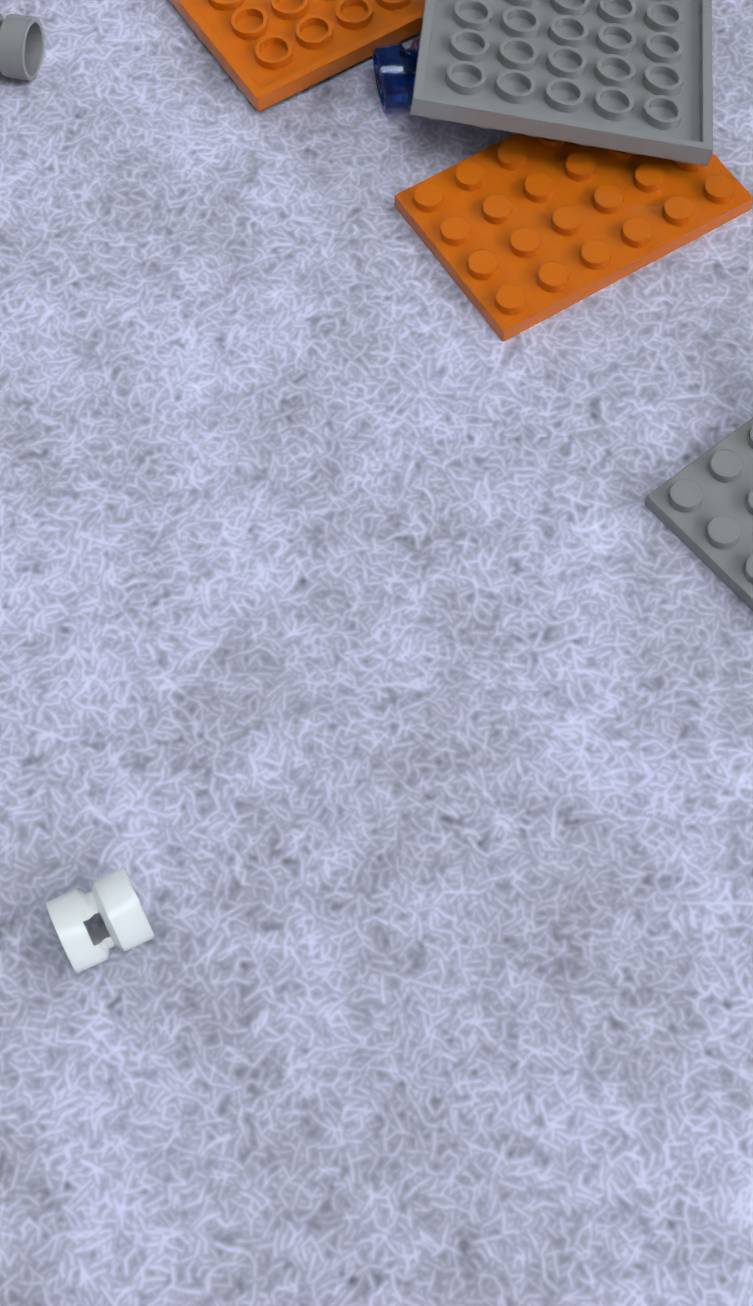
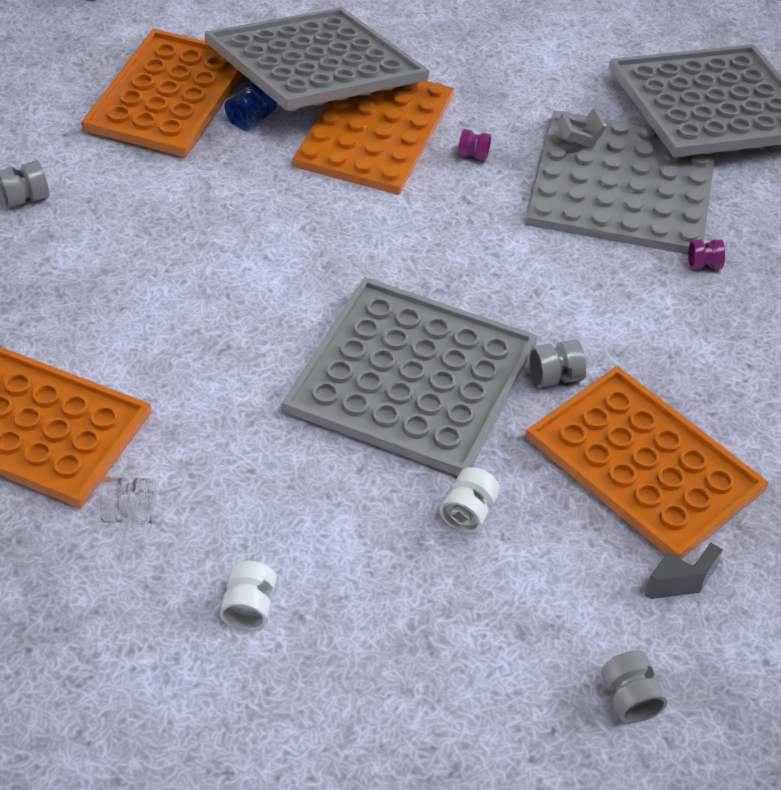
camera: 45 degrees left, 15 degrees down
(229, 663) = (411, 376): none -> light grey plate
(261, 1256) = (678, 577): none -> dark grey slope
(421, 1042) = (647, 462): none -> orange plate
(438, 781) = (562, 362): none -> light grey wheel
(684, 320) = (468, 143): none -> magenta wheel

